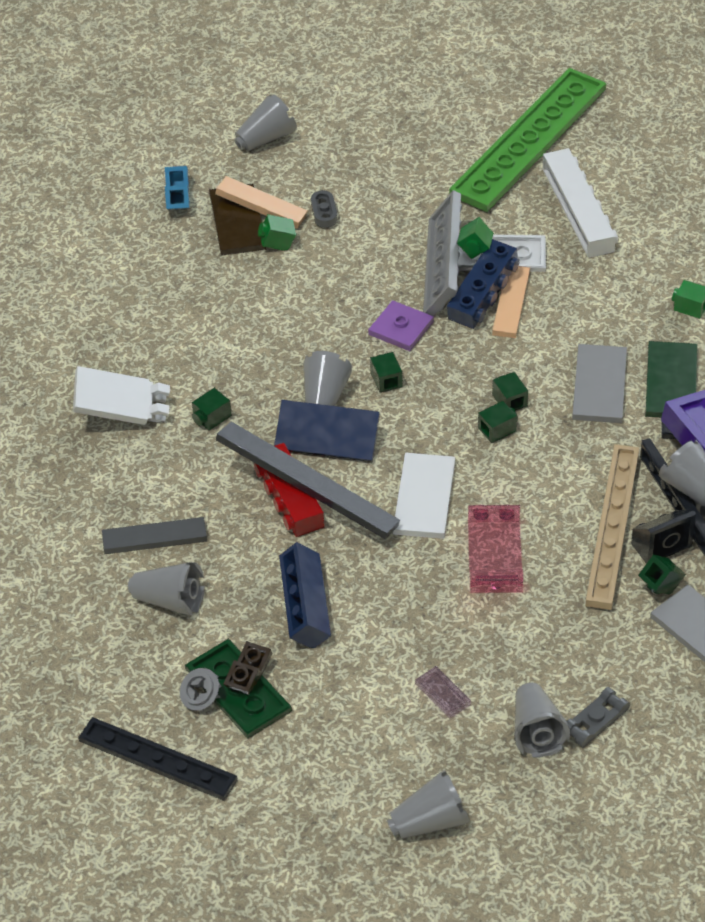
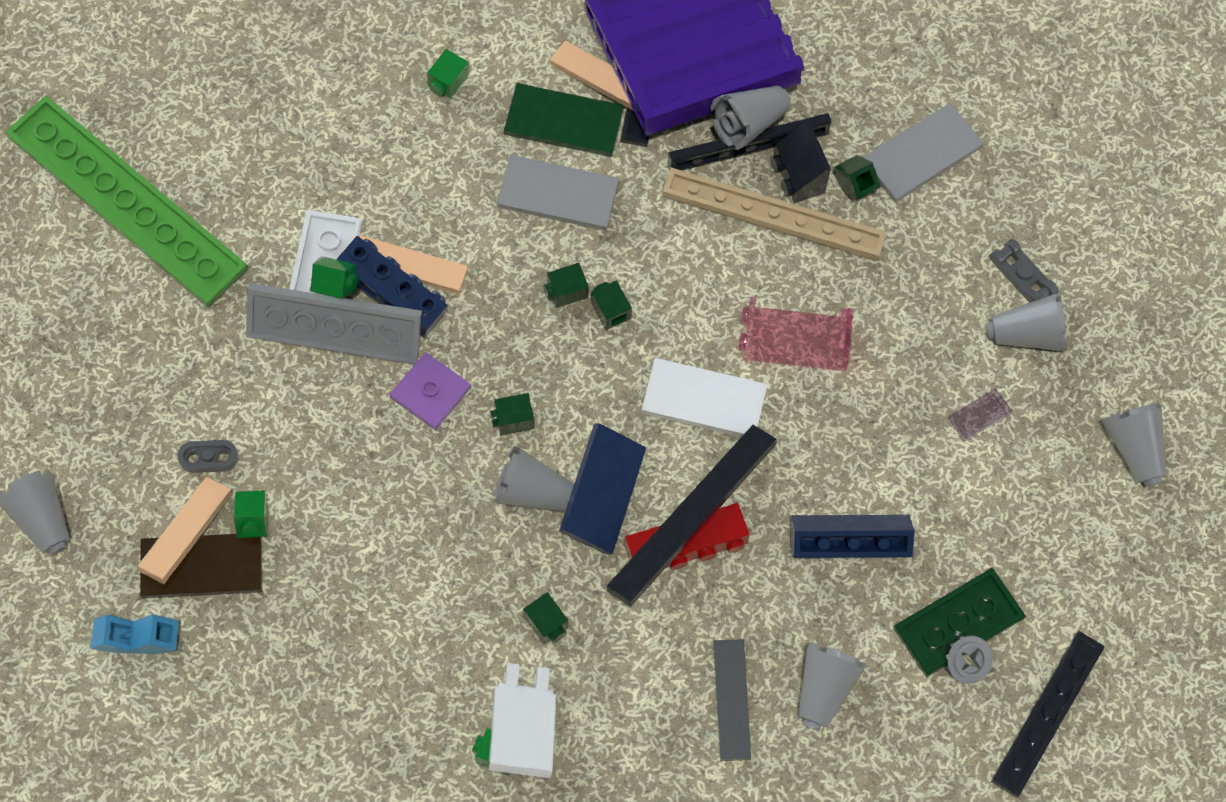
camera: 90 degrees left, 20 degrees up
(249, 667) = (946, 606): dark brown slope -> none
(579, 203) = (259, 162): white brick -> none

